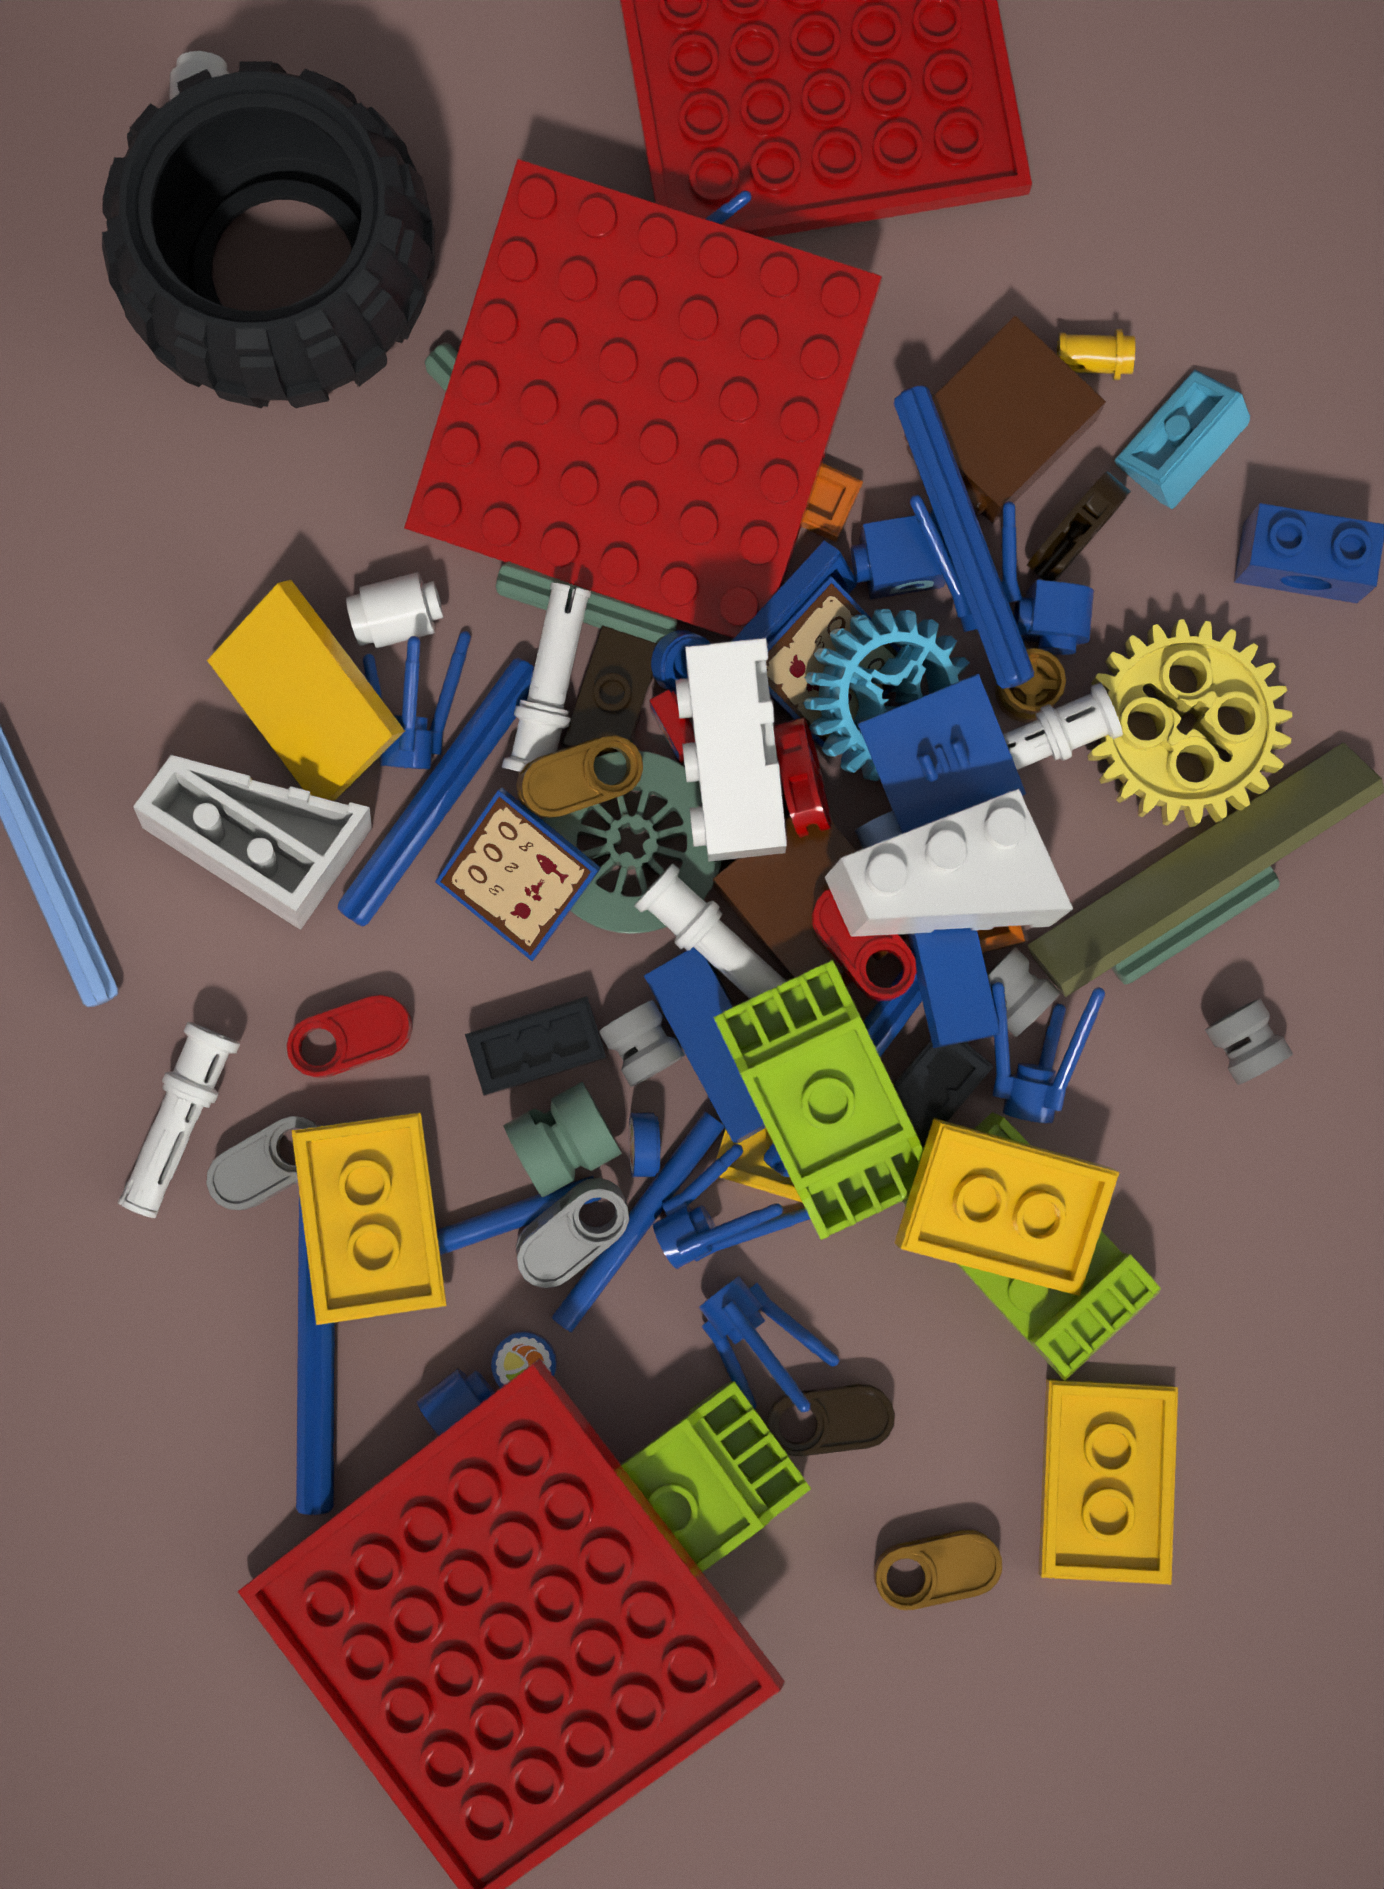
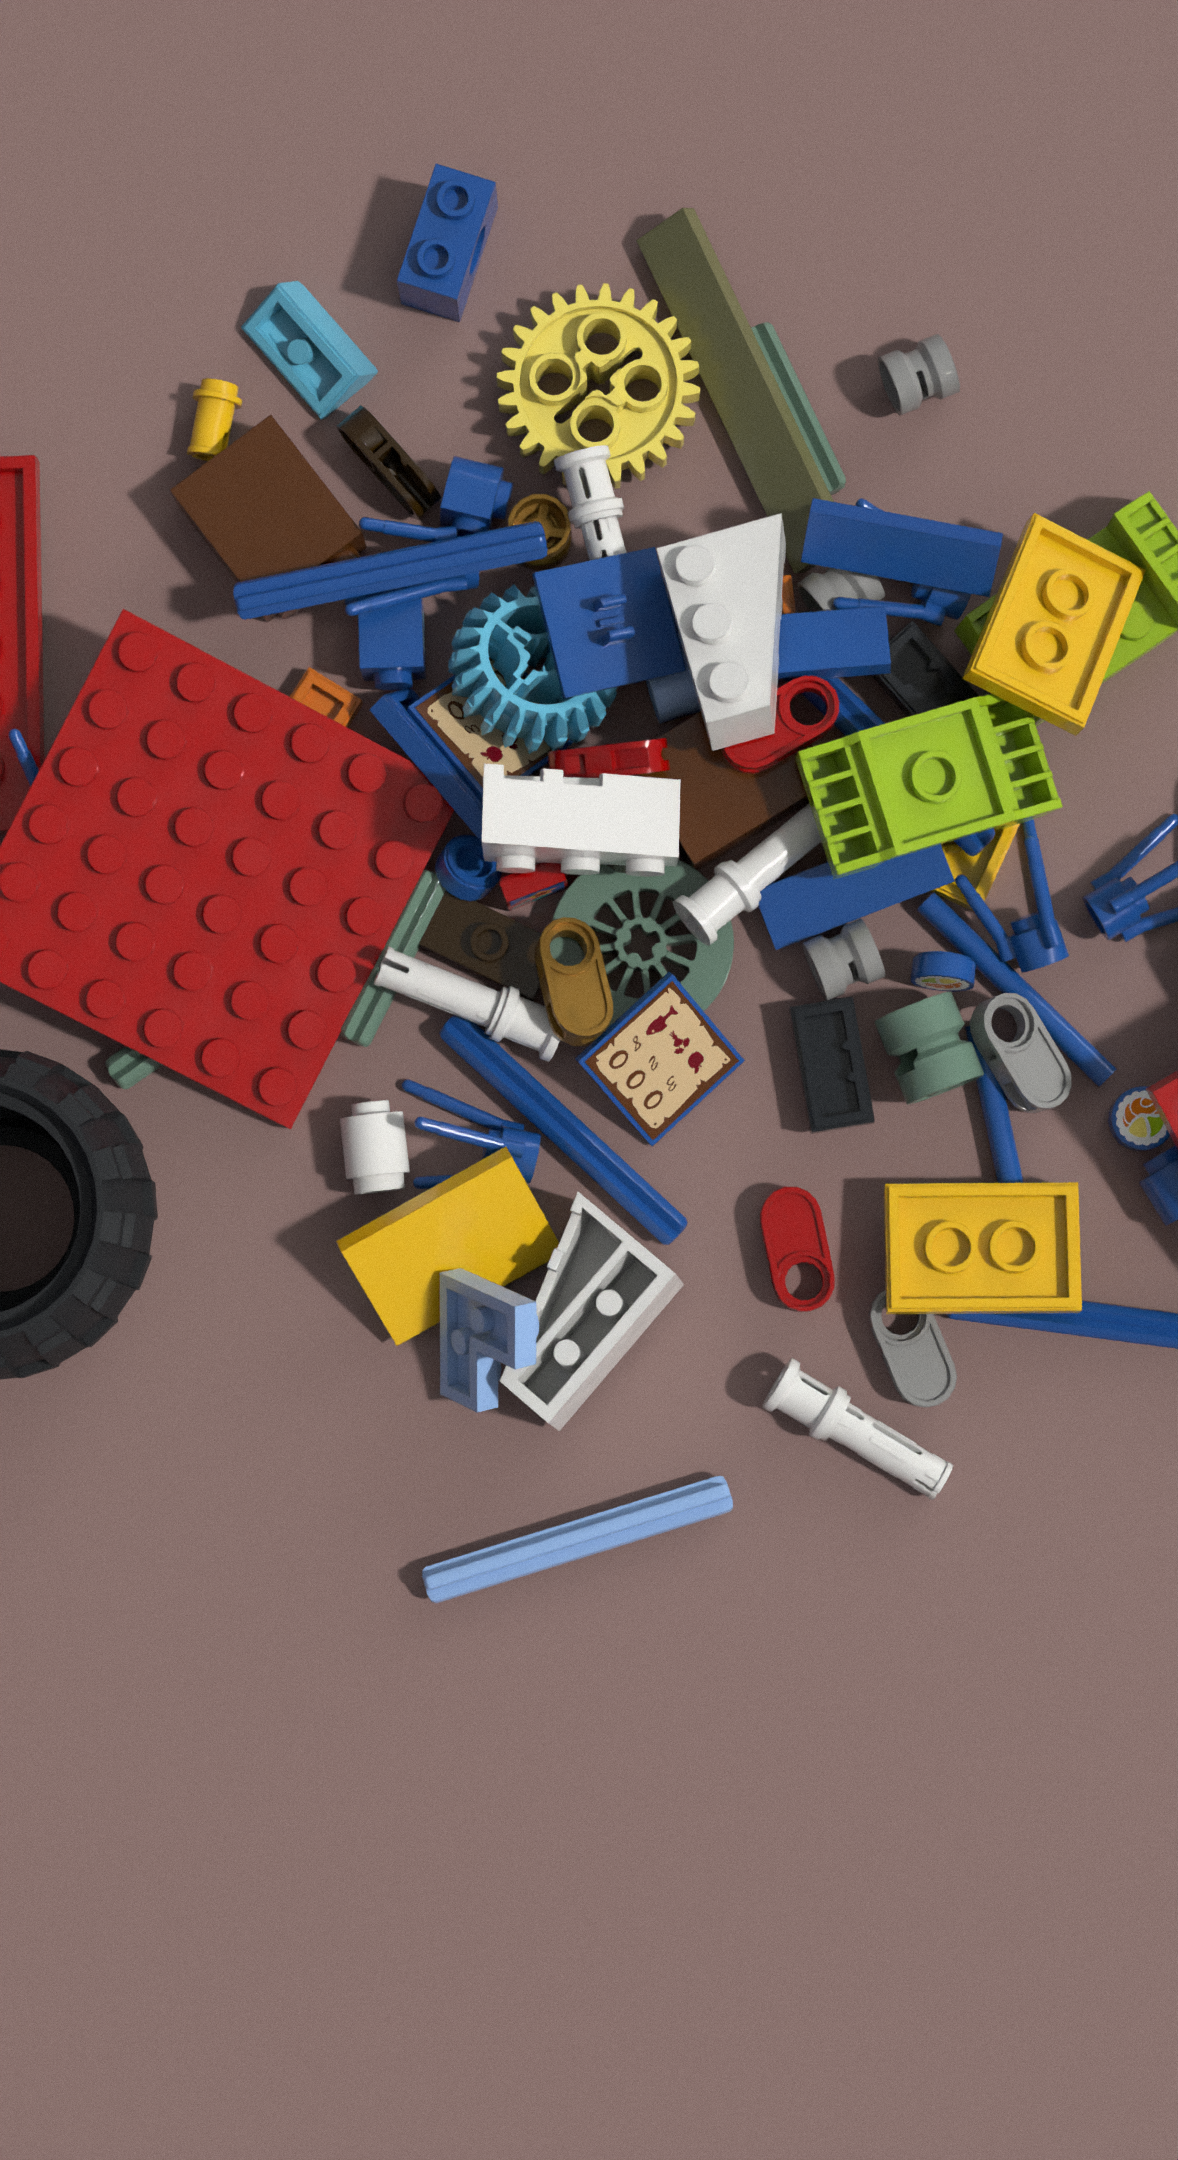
camera: 80 degrees left, 0 degrees up
(215, 735) = (479, 1331): none -> light blue plate
(1061, 1040) = (901, 547): none -> blue tile

